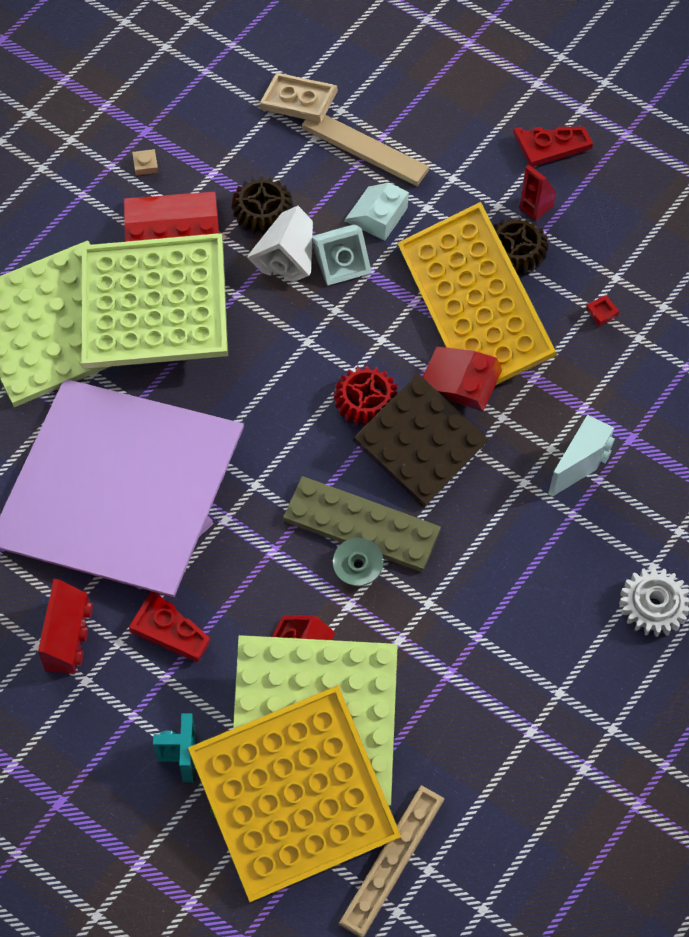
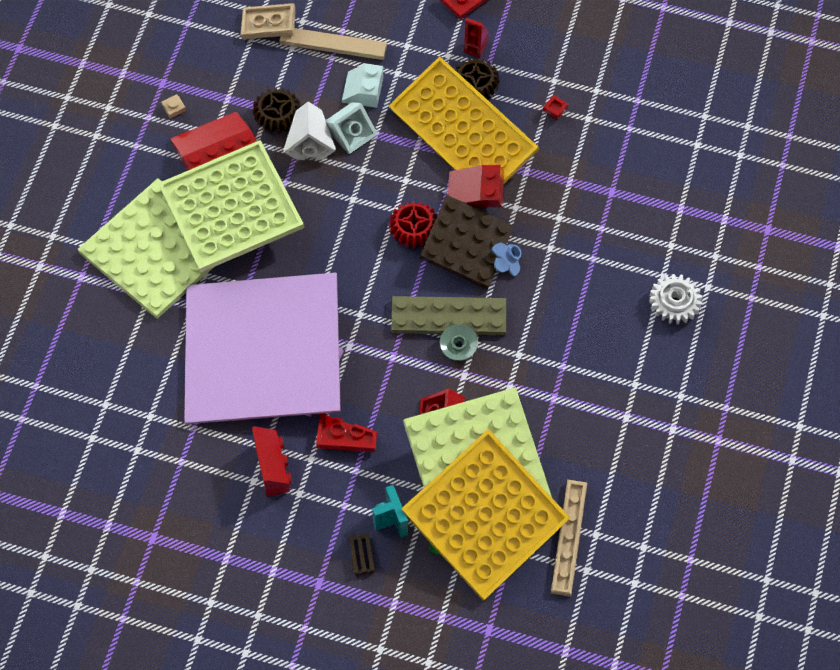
camera: 20 degrees left, 0 degrees up
(130, 763) = (359, 538): none -> dark brown tile
(460, 479) = (507, 258): none -> medium blue plate
(583, 455) = (589, 206): light aqua slope -> none

